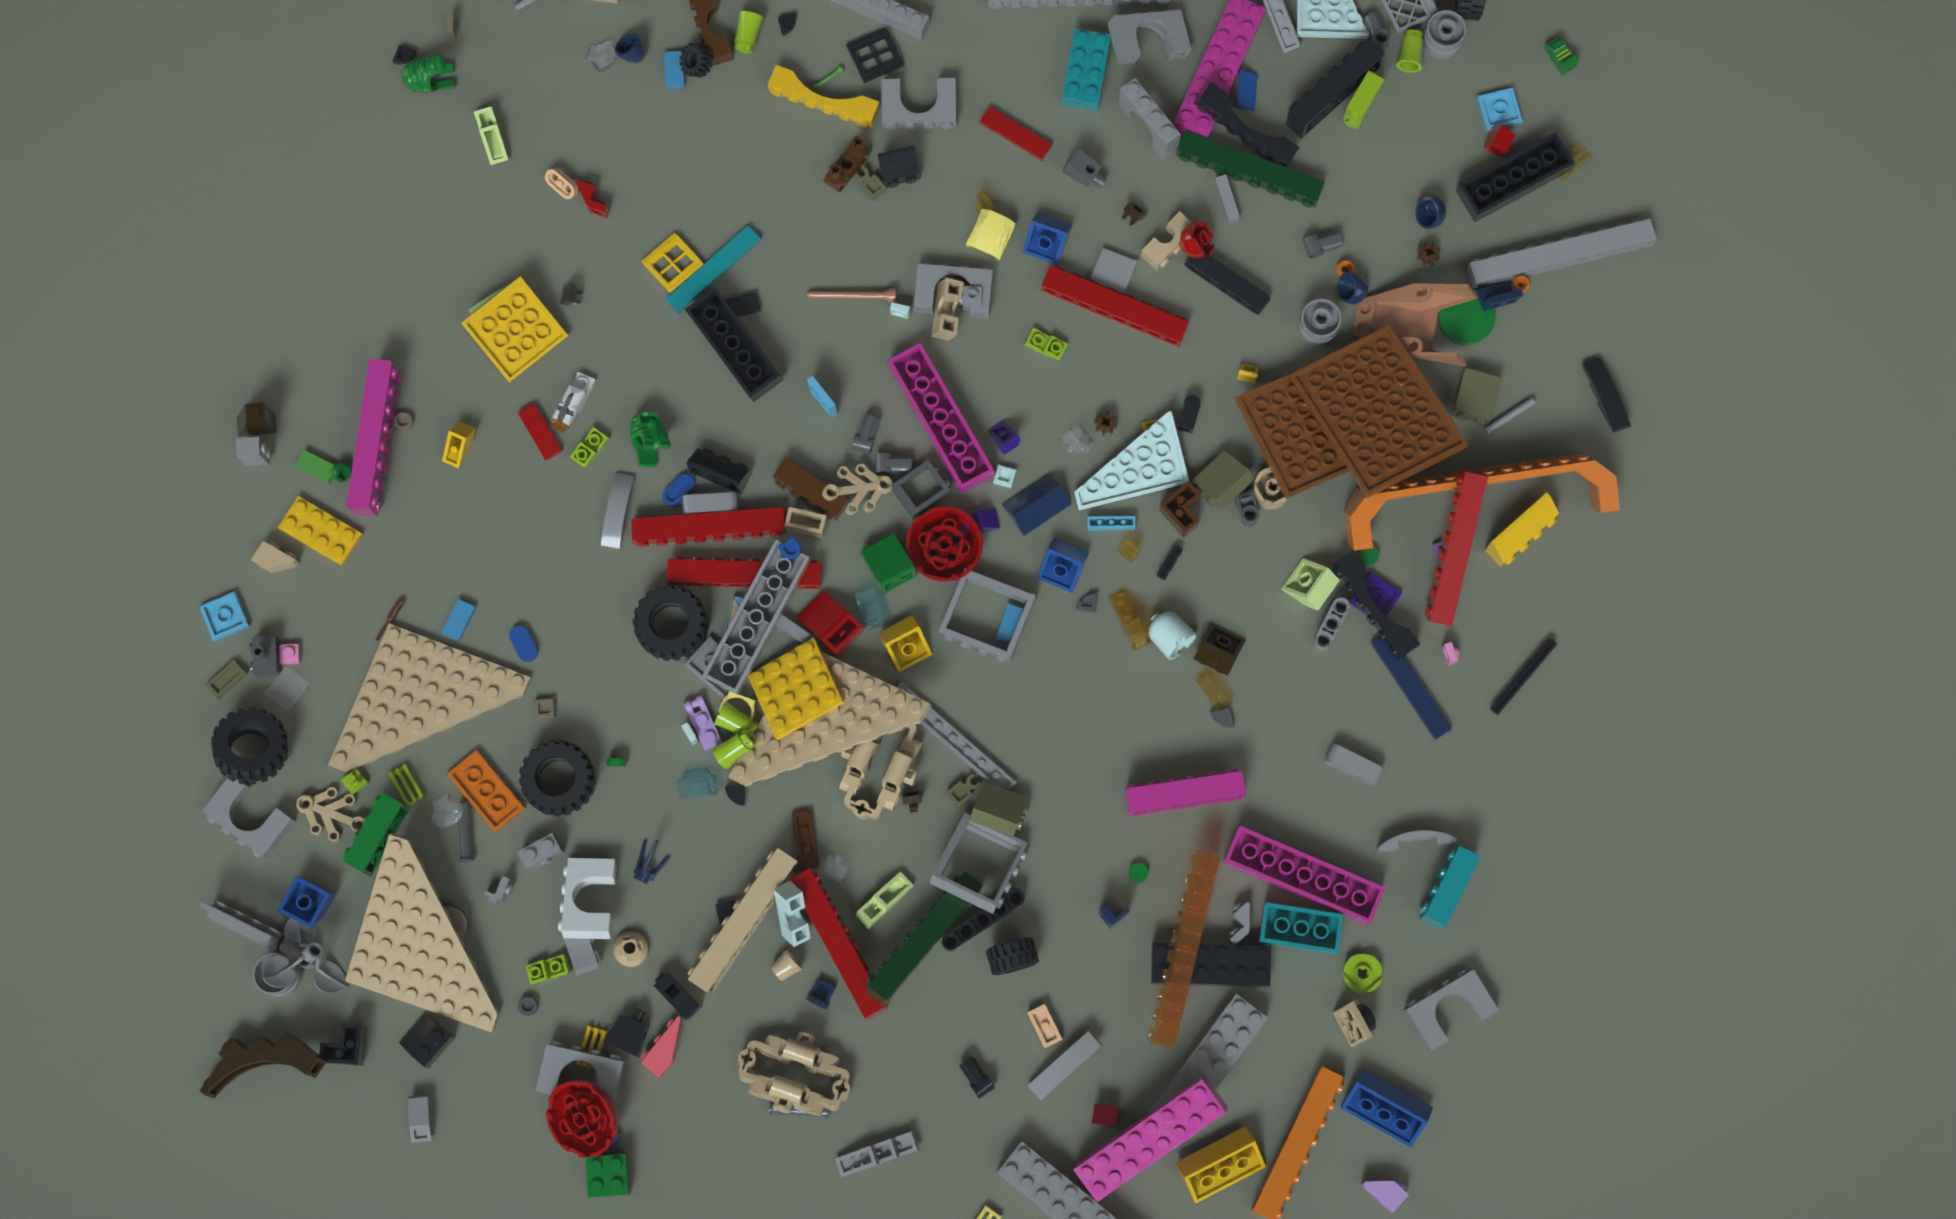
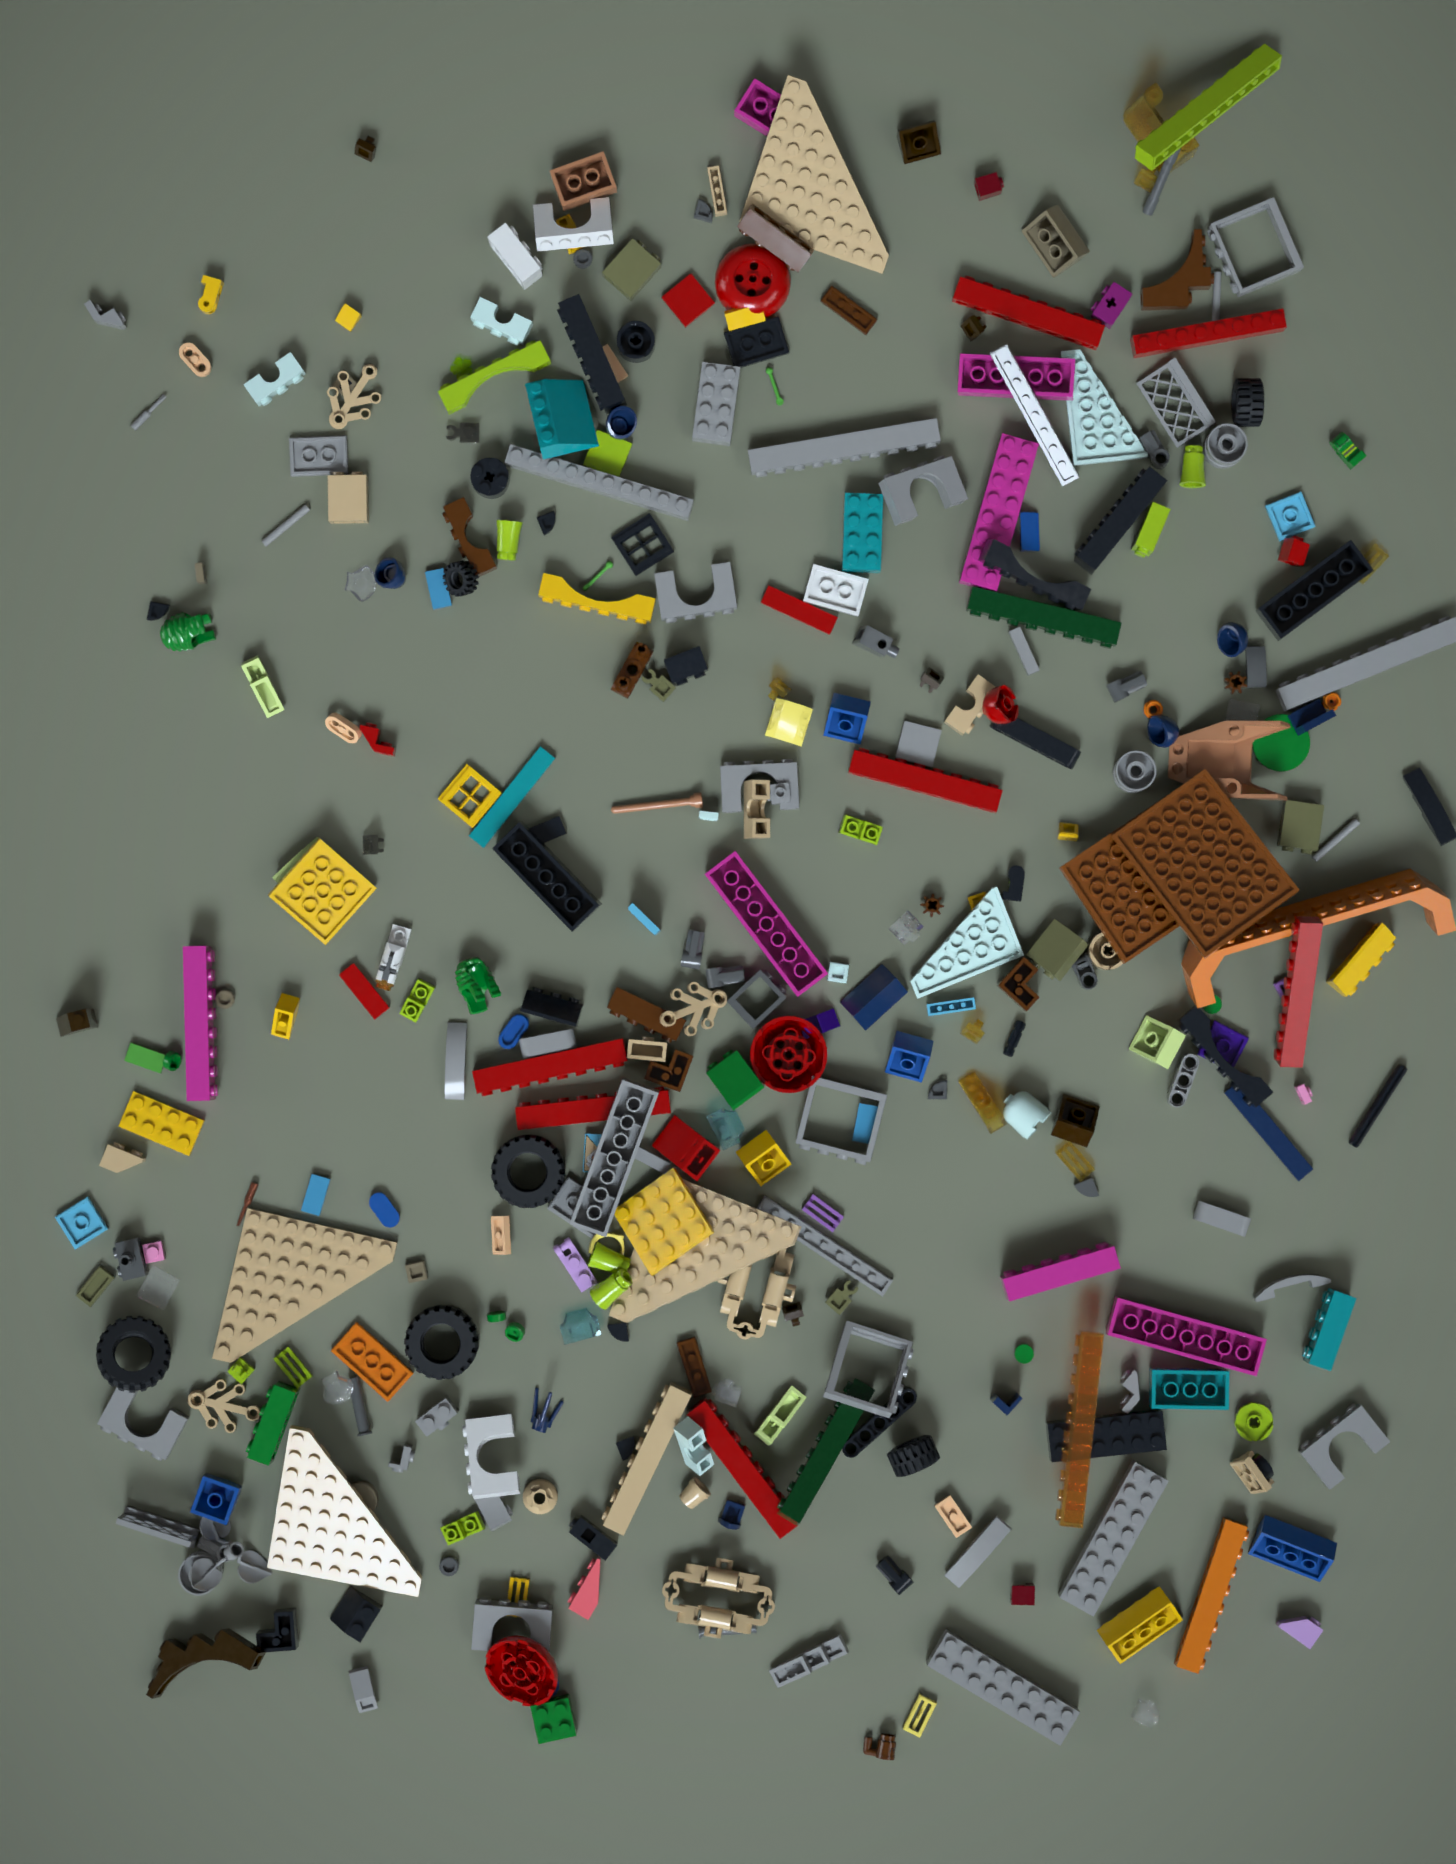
camera: 10 degrees left, 10 degrees up
(252, 451) = (80, 1053): light grey brick -> none
(629, 1033) = (551, 1580): black torso -> none
(632, 780) = (514, 1331): none -> green tile
(634, 683) = (500, 1235): none -> light nougat plate
(690, 733) = (564, 1277): light aqua tile -> none
(790, 549) = (638, 1088): blue tile -> none
(826, 550) = (672, 1076): none -> reddish brown brick
(961, 700) = (835, 1222): none -> medium lavender tile
(999, 809) = (881, 1312): olive brick -> none
(1004, 437) = (832, 933): dark purple slope -> none
(1053, 119) = (835, 590): none -> white plate
(1136, 100) = (919, 564): light grey arch -> none
(1150, 1138) = (1070, 1614): dark pink brick -> none
(1450, 242) = (1256, 667): none -> dark grey slope

